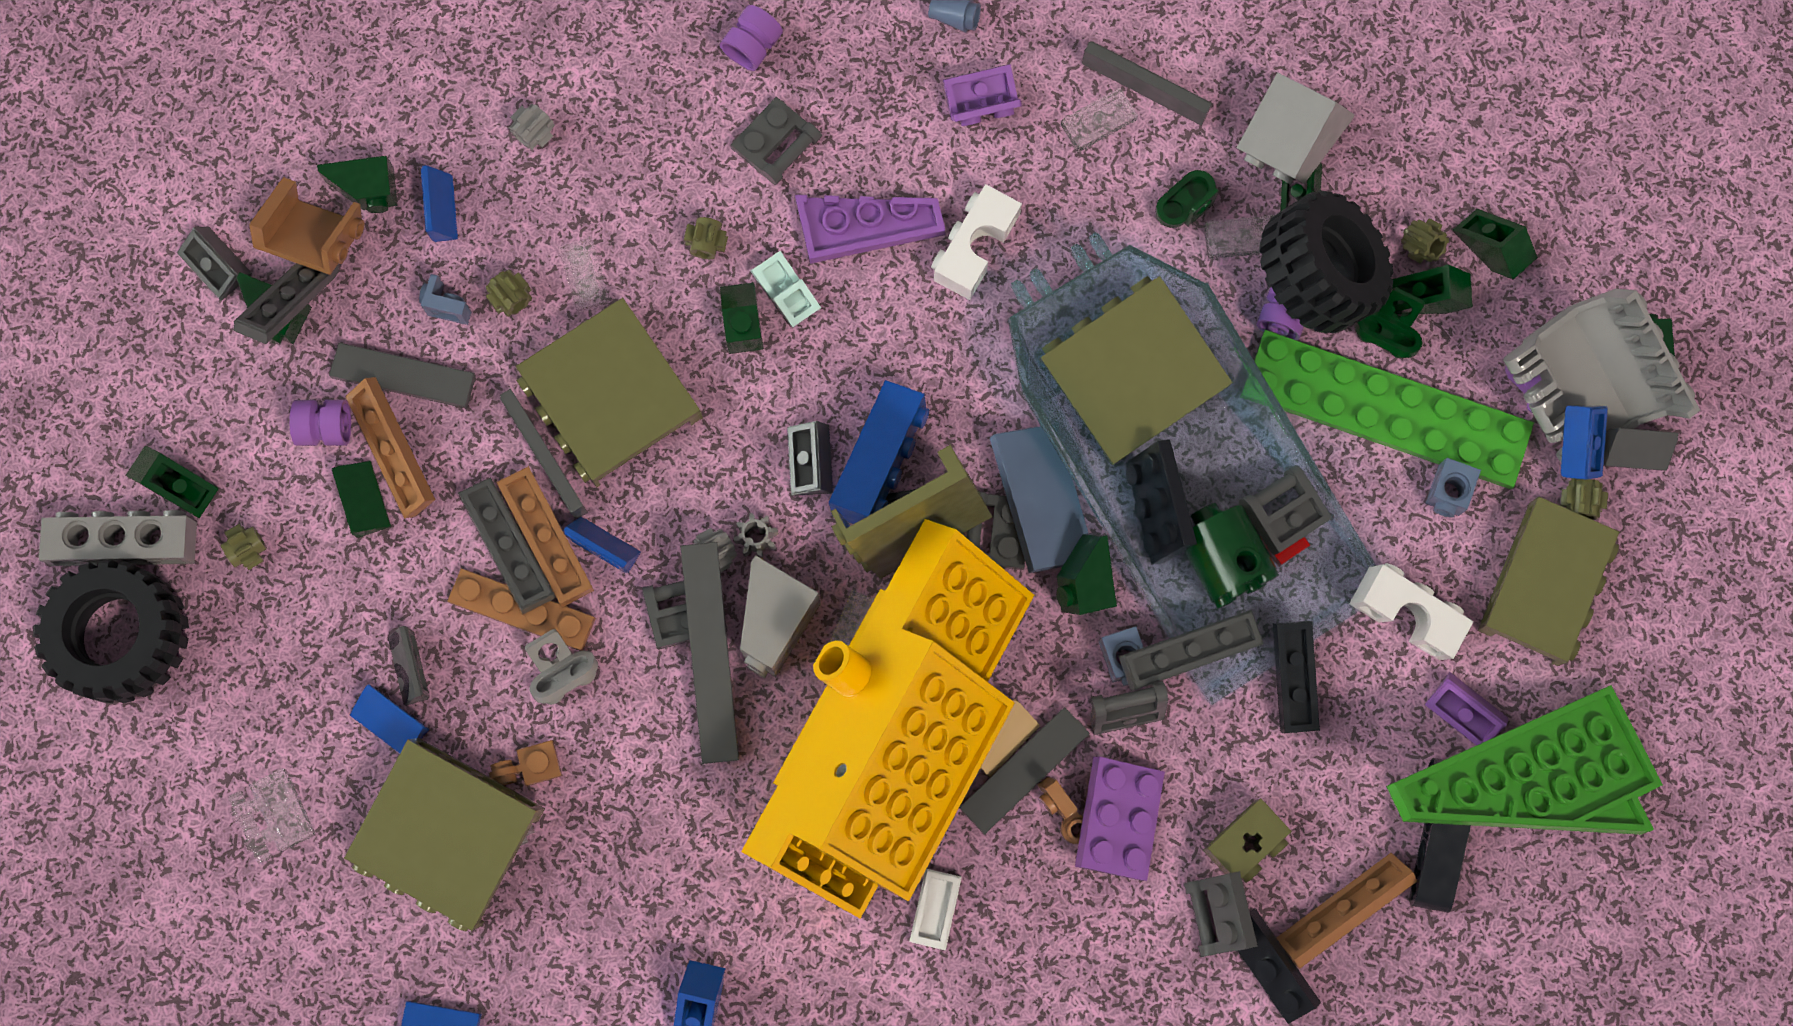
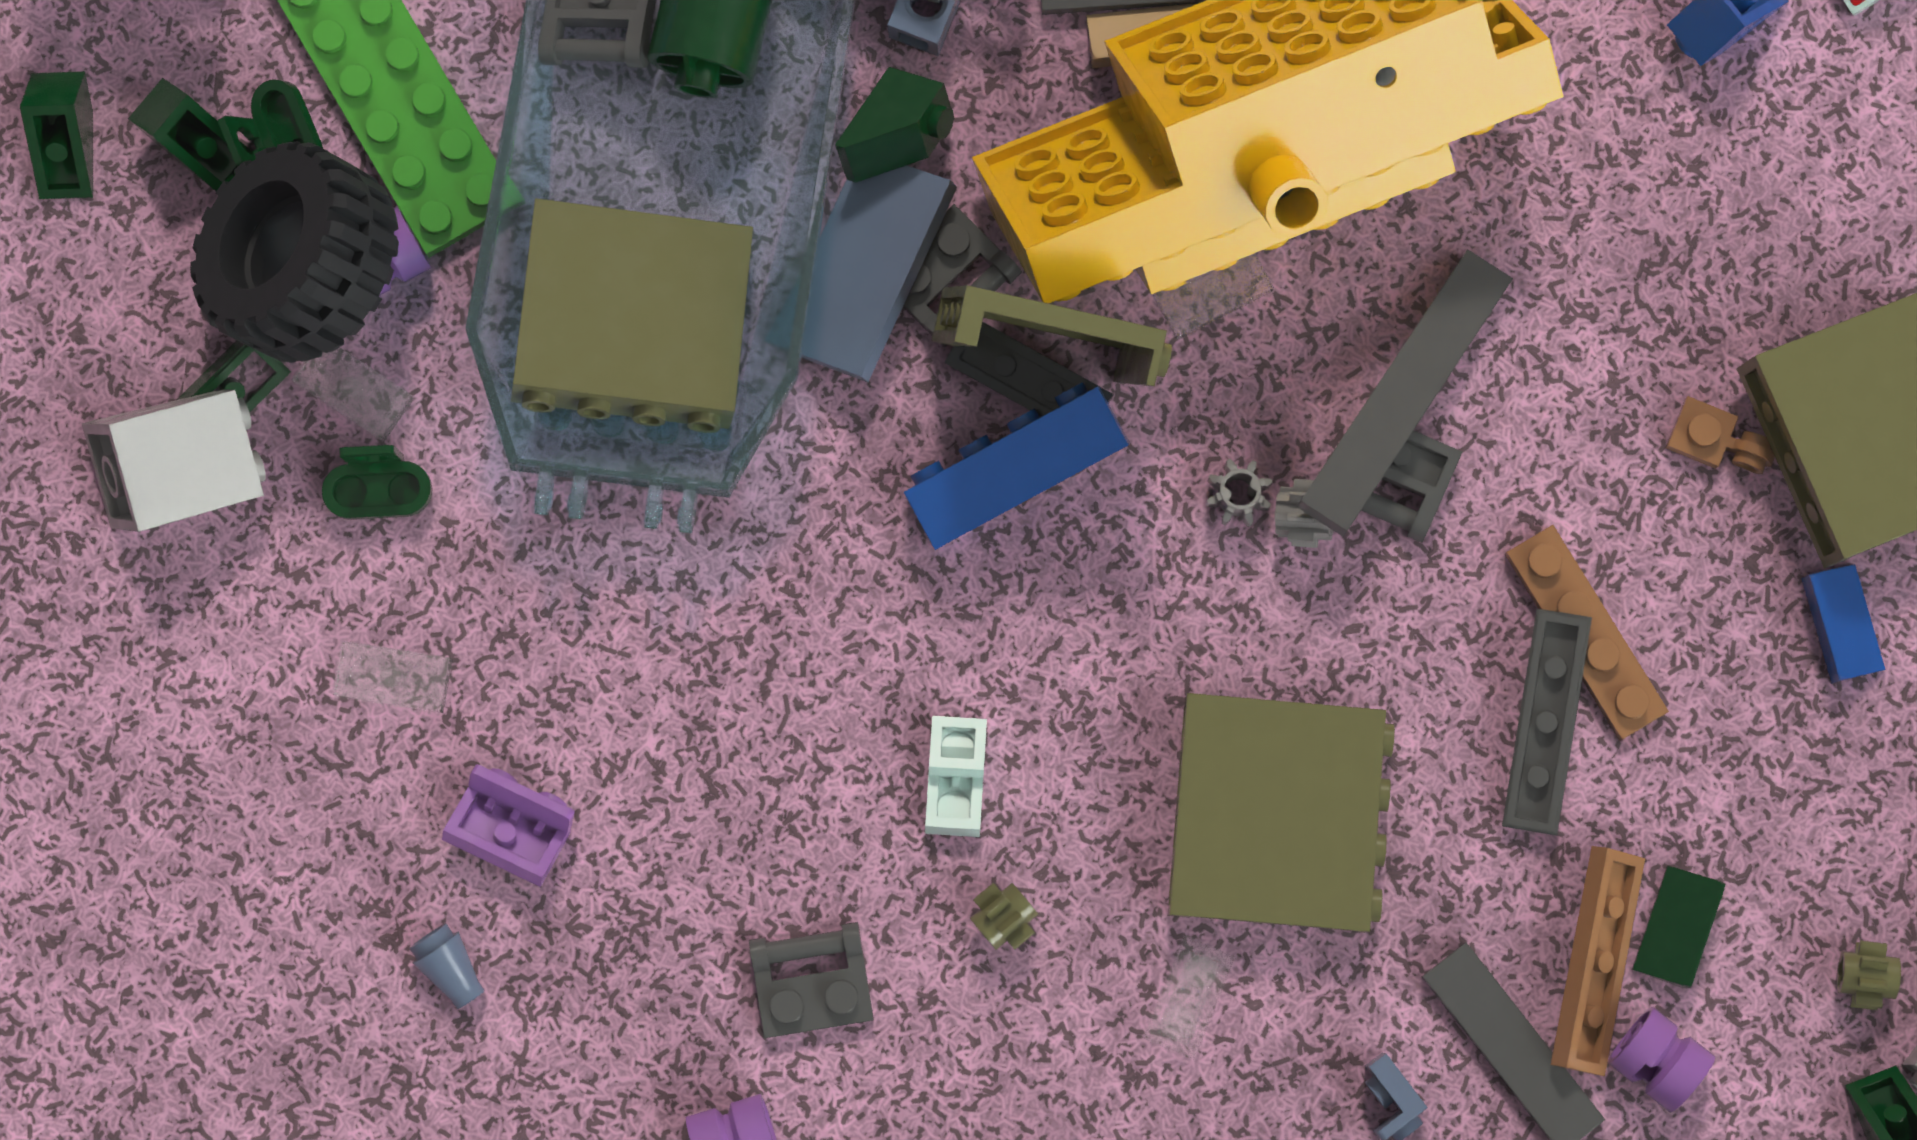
camera: 135 degrees left, 5 degrees up
(408, 666) = (1773, 669): dark grey slope -> none
(508, 293) = (1303, 1043): olive gear -> none
(543, 454) = (1417, 799): dark grey tile -> none
(545, 536) = (1492, 695): medium nougat plate -> none
(562, 673) = (1597, 513): light grey bracket -> none
(602, 544) = (1429, 632): blue slope -> none
(741, 318) = (1038, 782): dark green slope -> none
(774, 617) = (1298, 366): light grey slope -> none
(810, 459) = (1098, 539): dark grey slope -> none
(847, 227) = (802, 785): medium lavender wing -> none
(989, 215) = (722, 630): white arch -> none
(1146, 83) = (294, 674): dark grey tile -> none
(1160, 502) = (738, 136): black plate -> none
(1424, 240) = (142, 202): olive gear -> none

